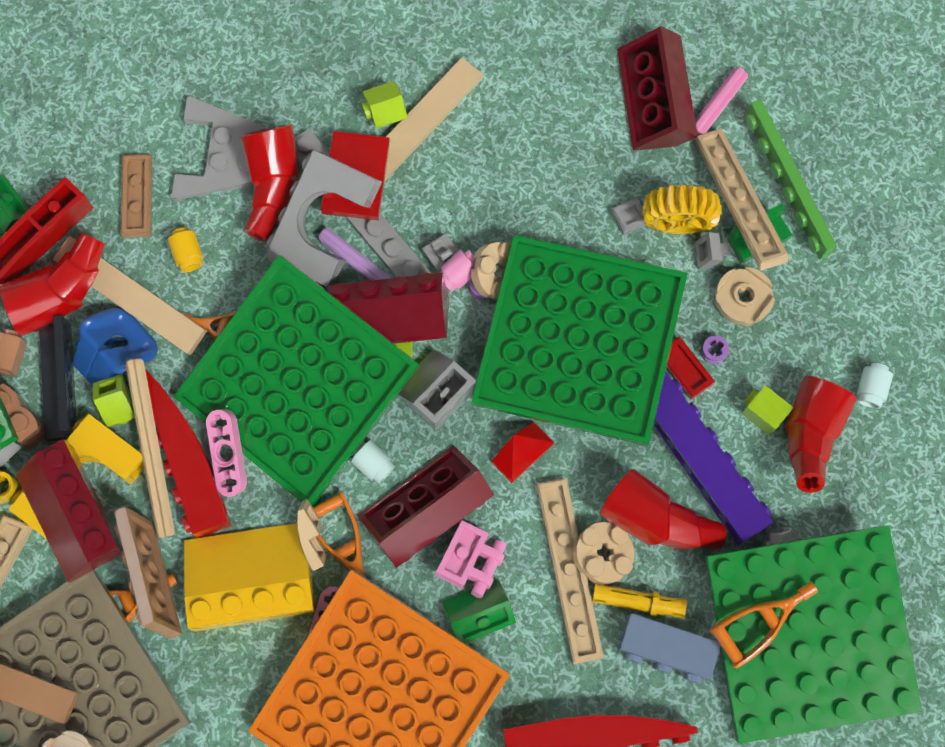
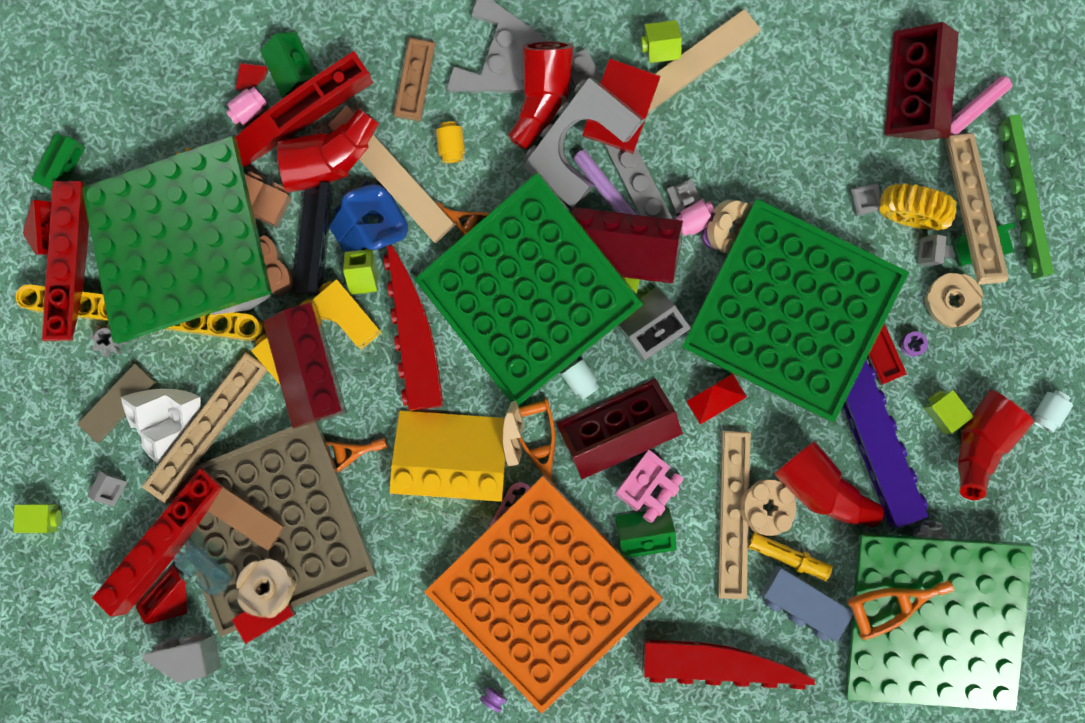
camera: 15 degrees right, 10 degrees up
(147, 573) = (363, 434): medium nougat plate -> none
(150, 448) = (385, 322): tan axle -> none
(218, 462) = (442, 360): bright pink beam -> none

